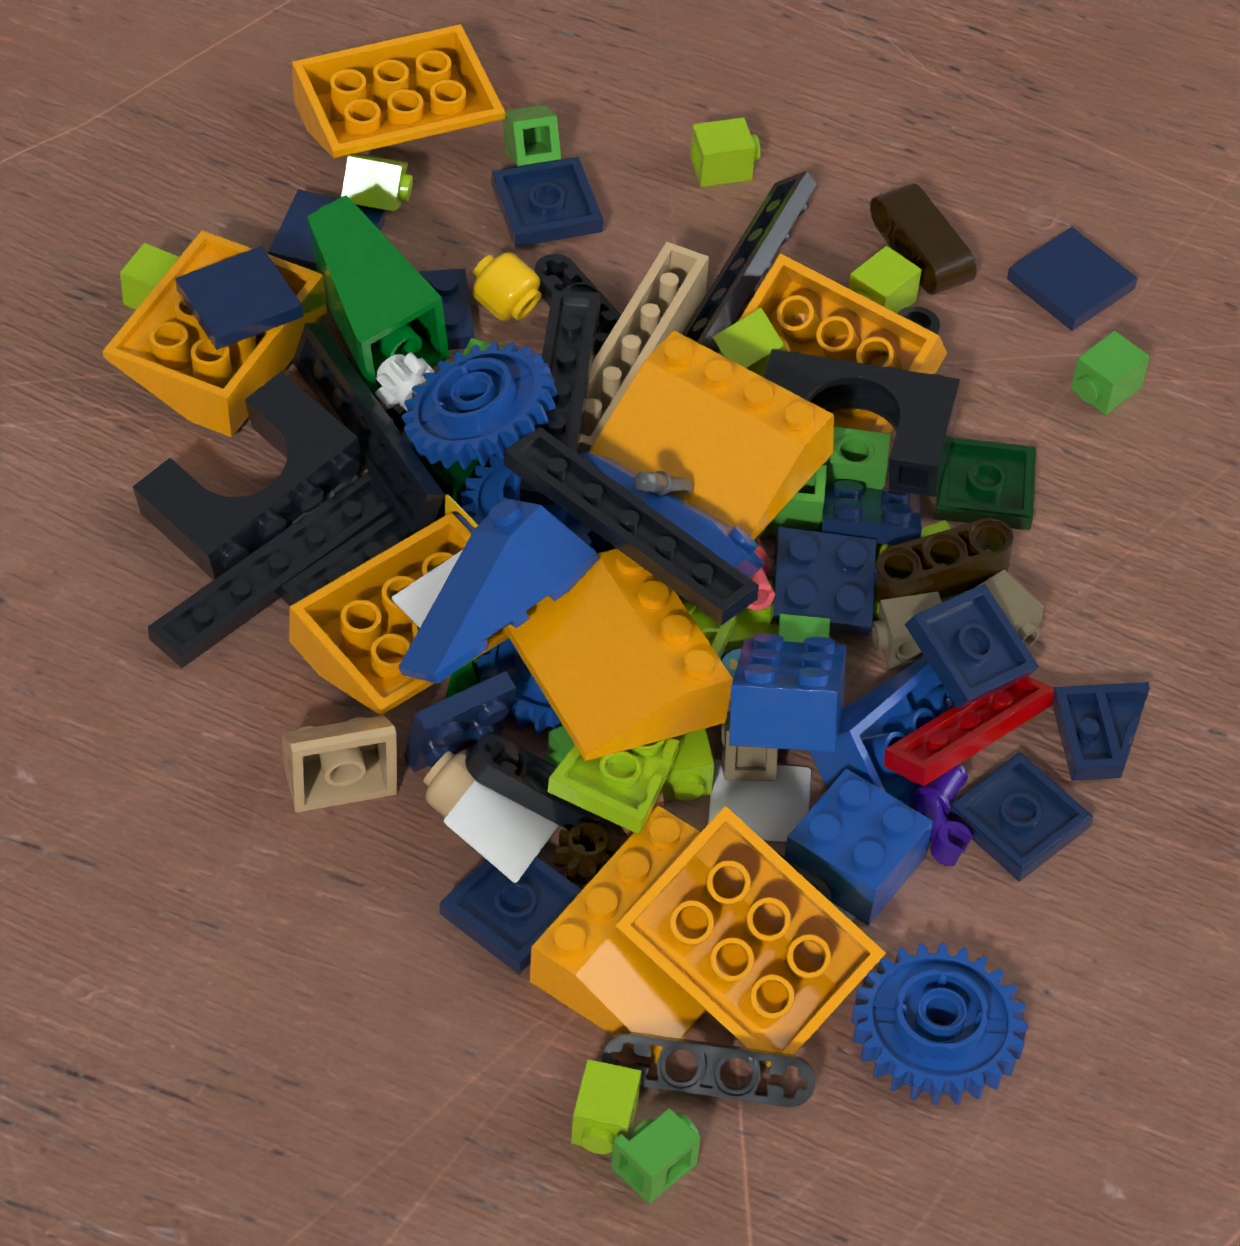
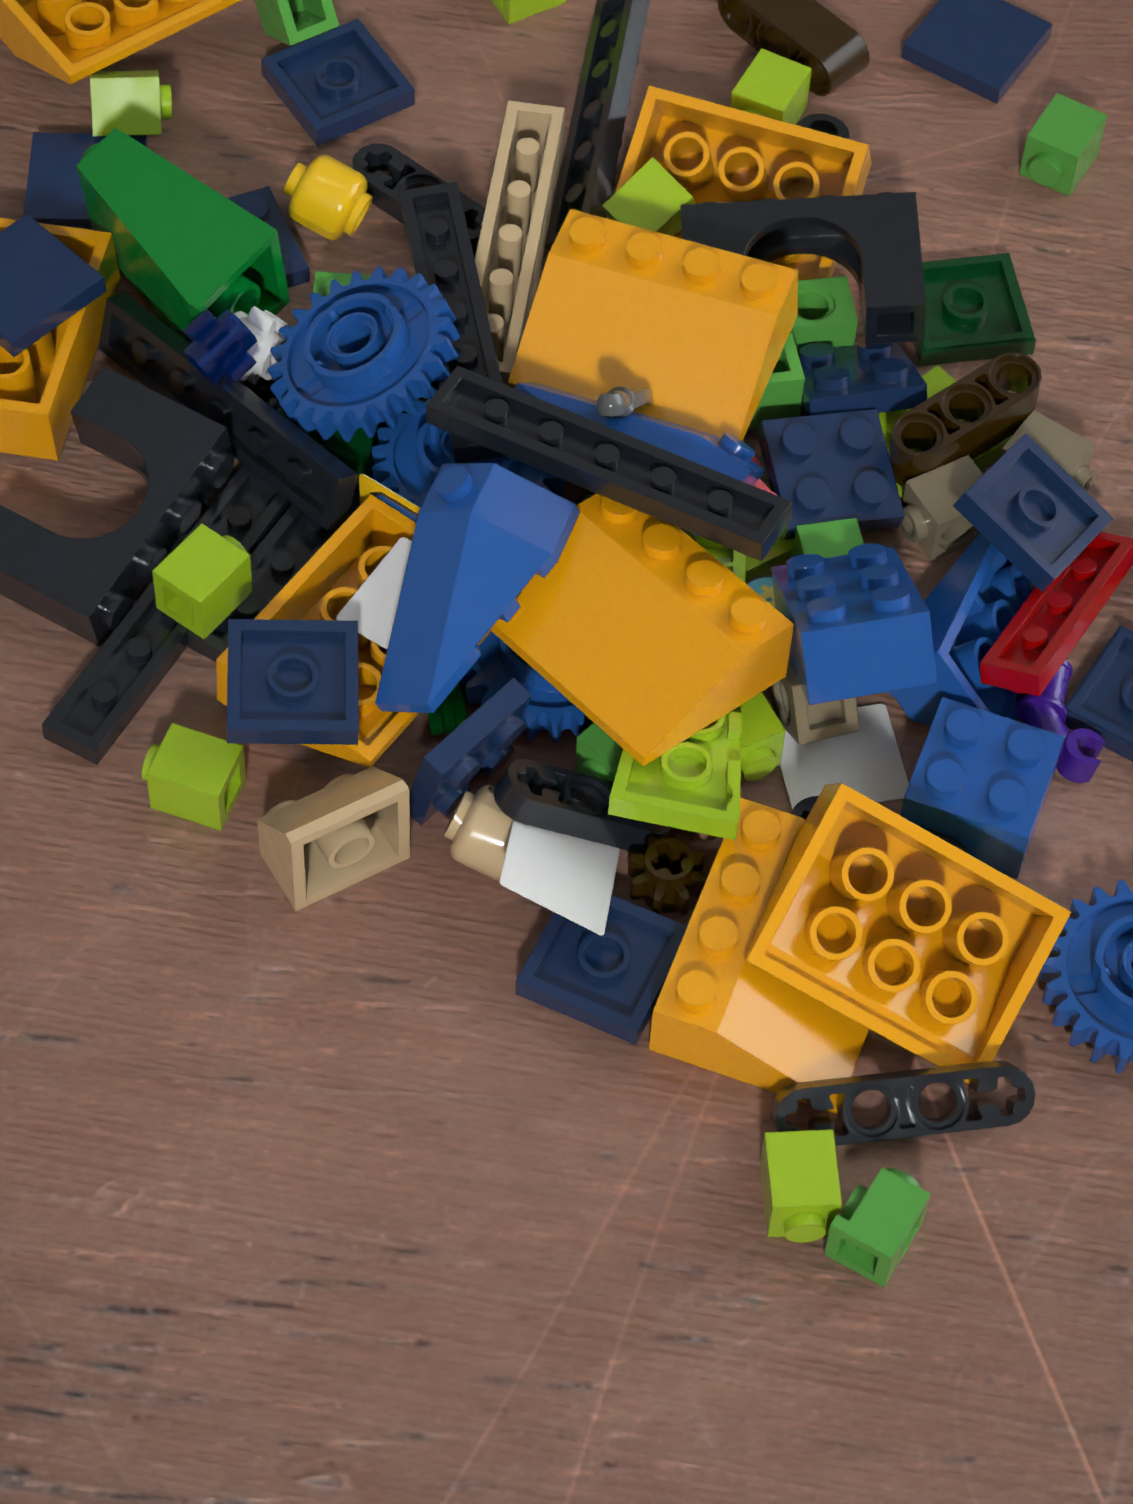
camera: 15 degrees left, 5 degrees up
(250, 693) = (194, 776): none -> lime brick
(303, 548) = (203, 580): none -> lime brick
(338, 635) = (292, 682): none -> dark blue plate
(370, 375) = (219, 346): none -> clear blue gear

